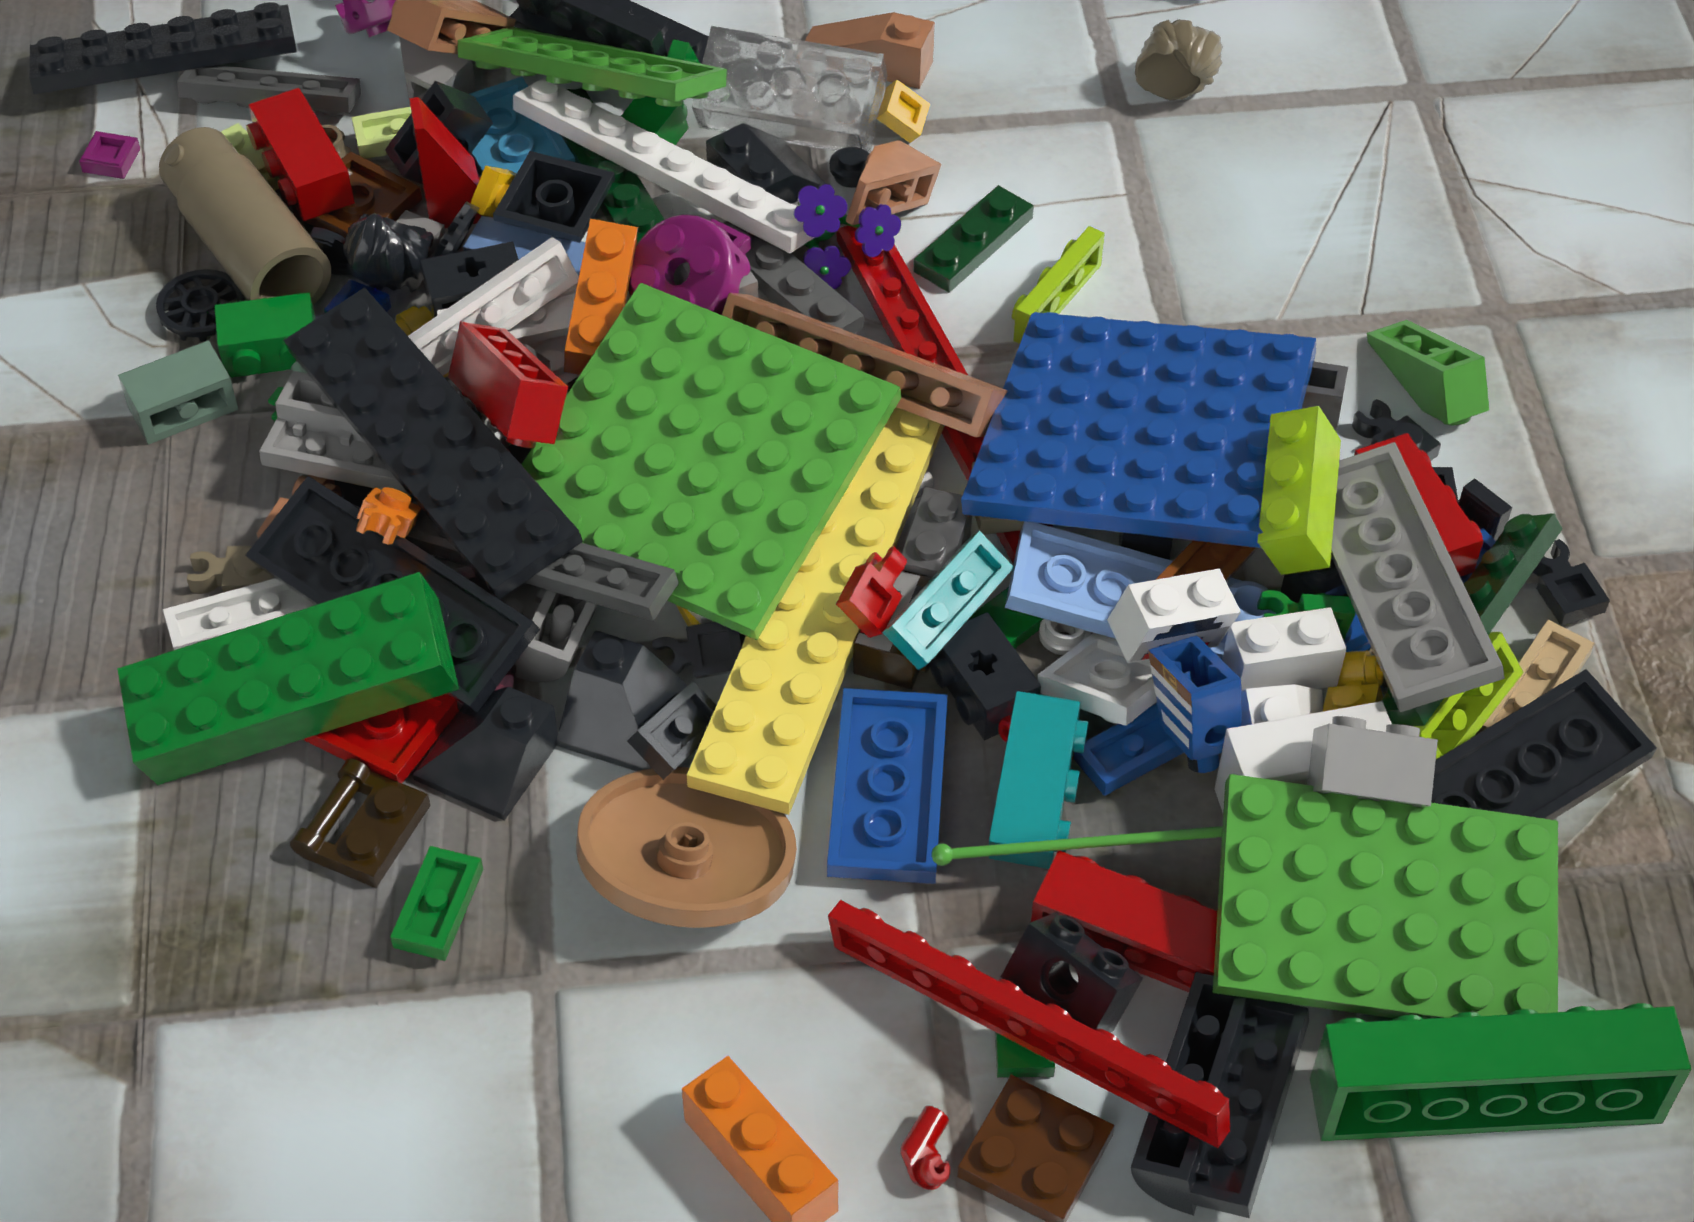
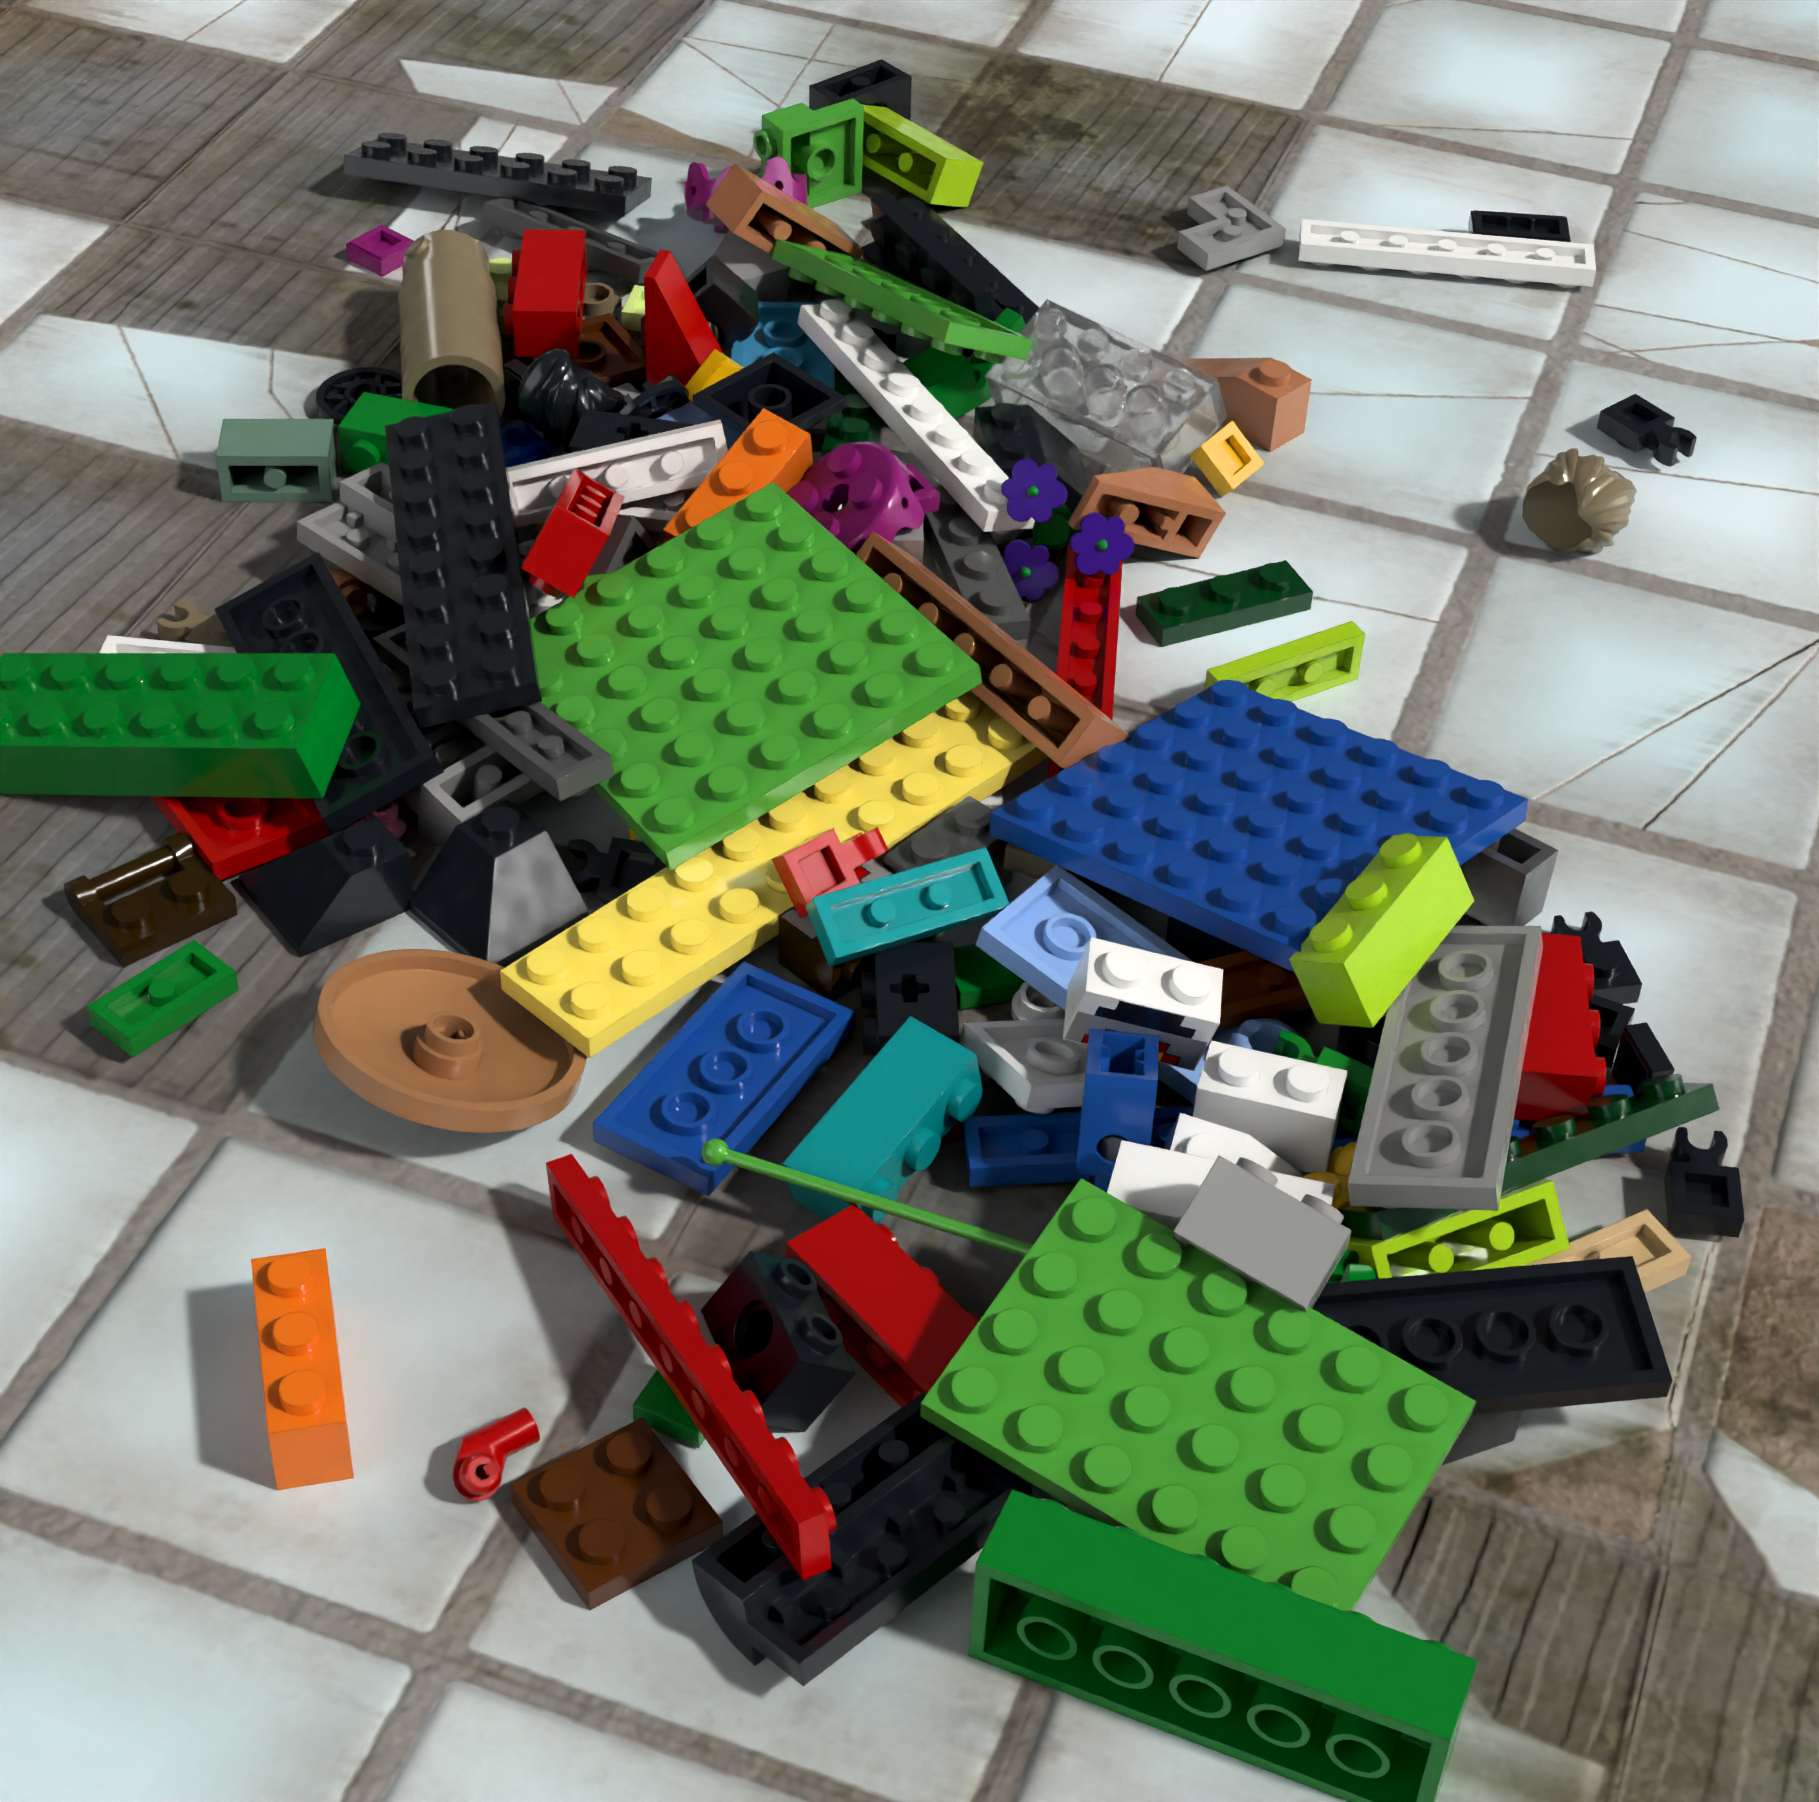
camera: 25 degrees right, 10 degrees down
(388, 514) = (365, 605): orange plate -> none
(674, 730) = (514, 926): black plate -> none
(1434, 371) = (1683, 909): bright green slope -> none

